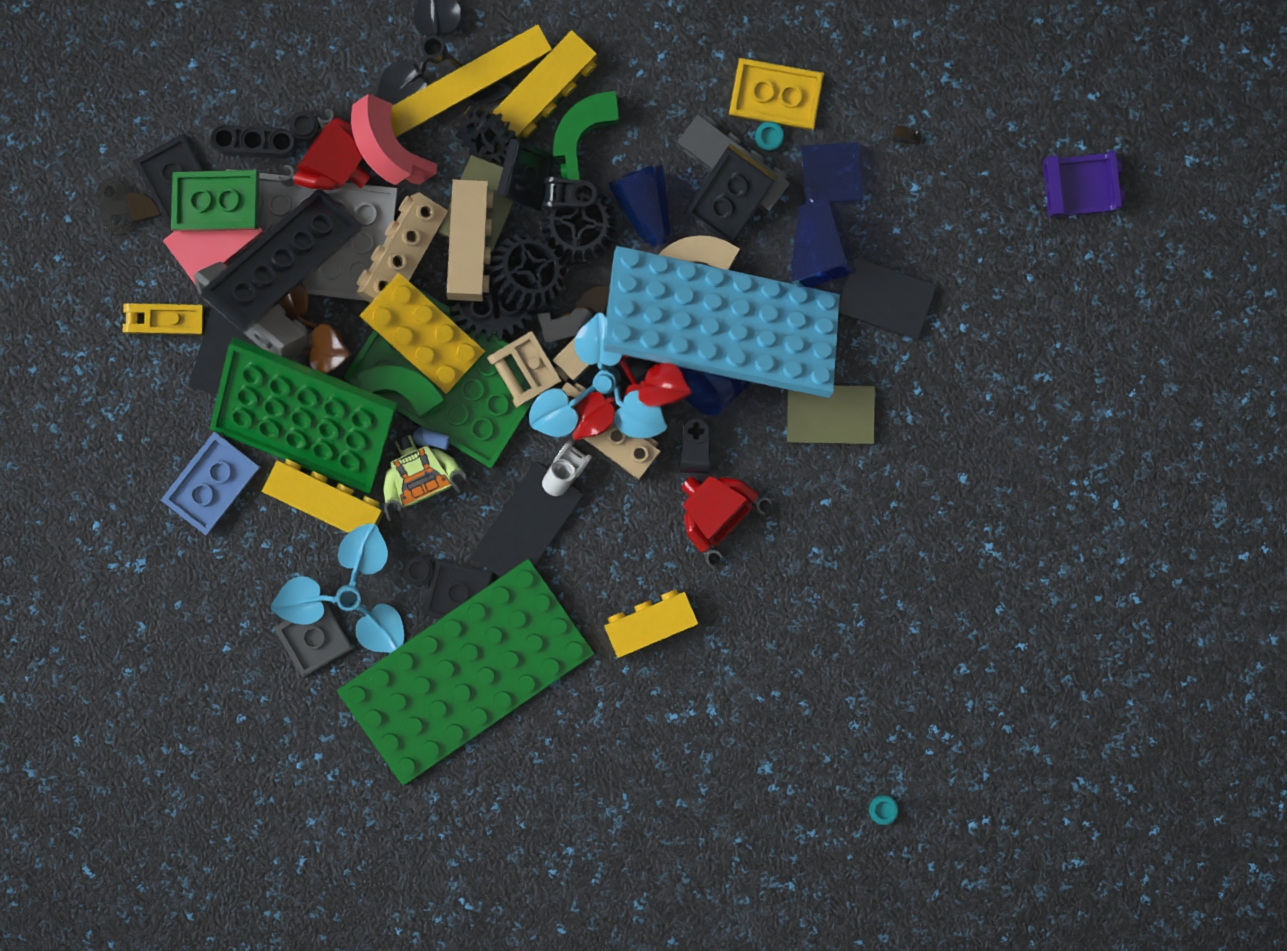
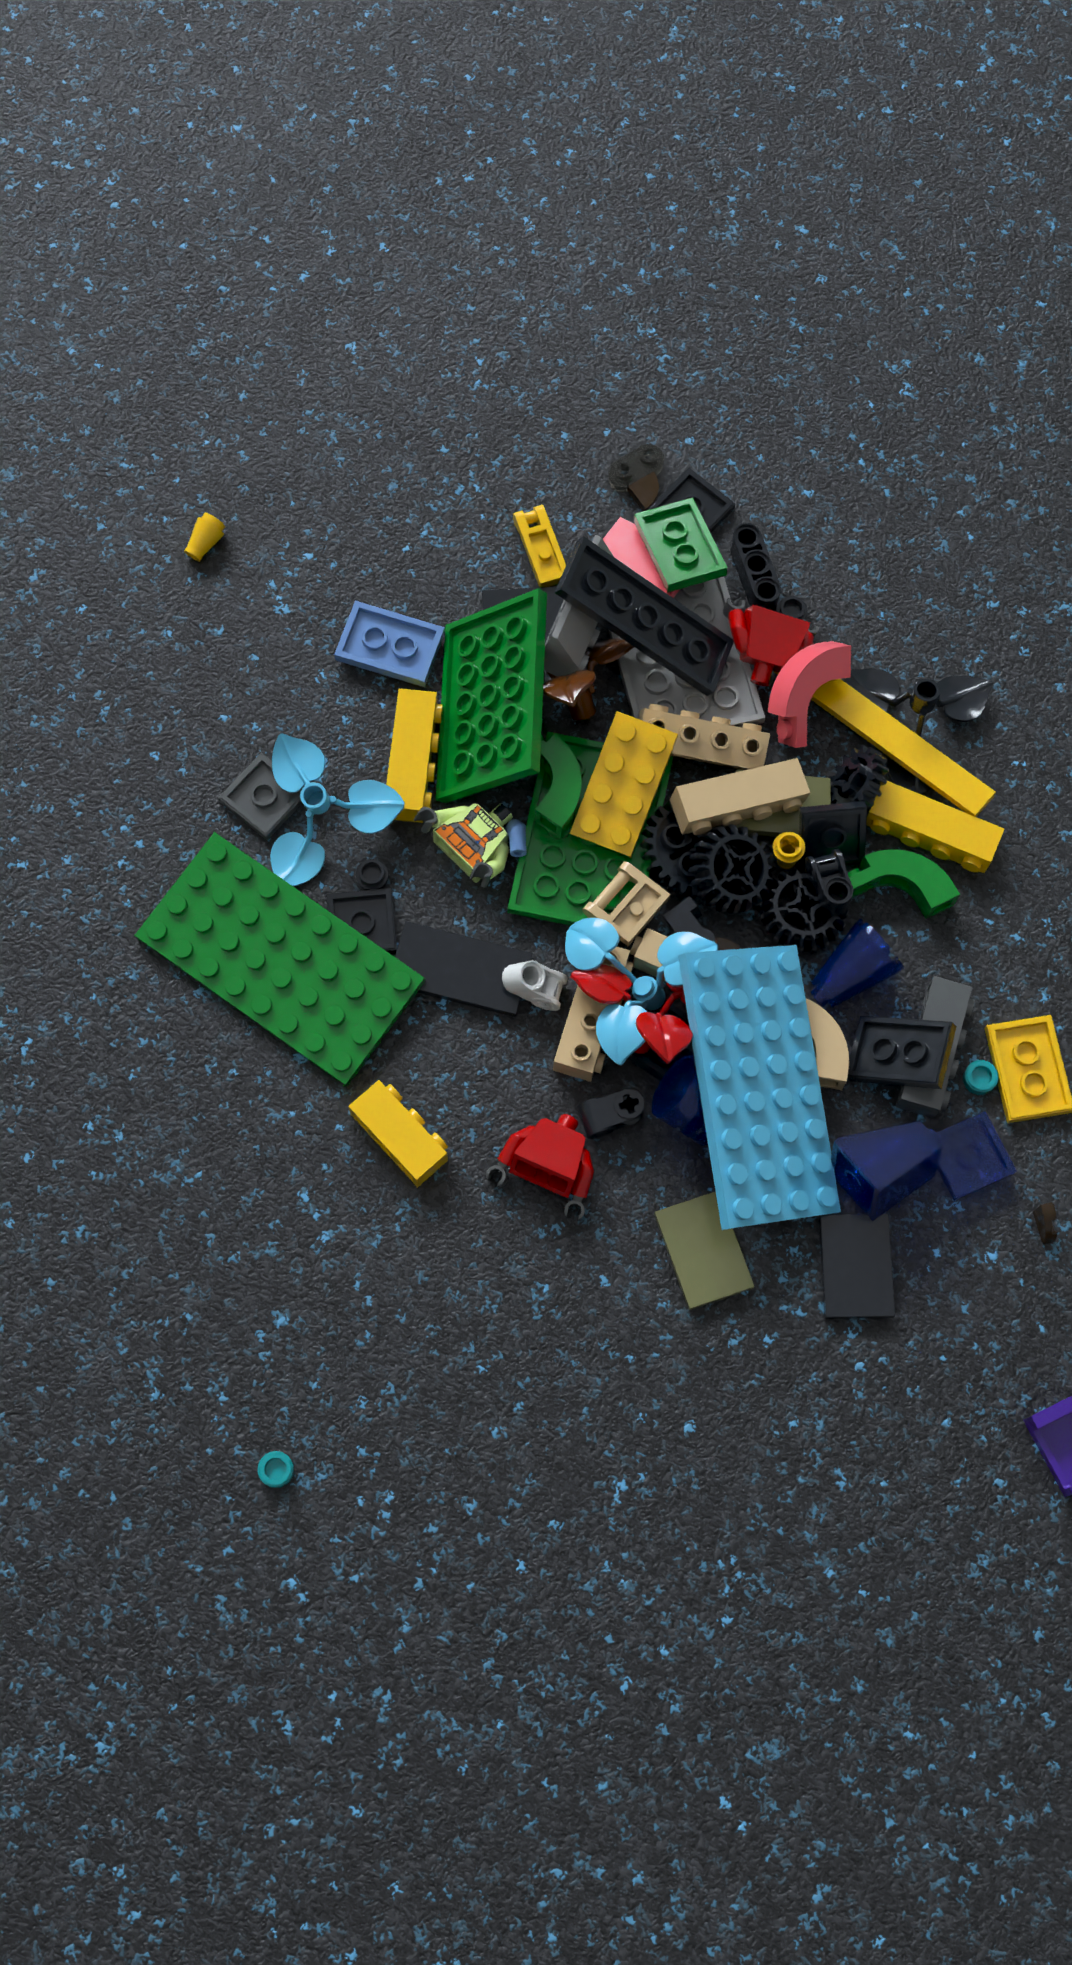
camera: 65 degrees right, 15 degrees down
(48, 611) = (205, 535): none -> yellow cone
(519, 210) = (788, 849): none -> yellow cone

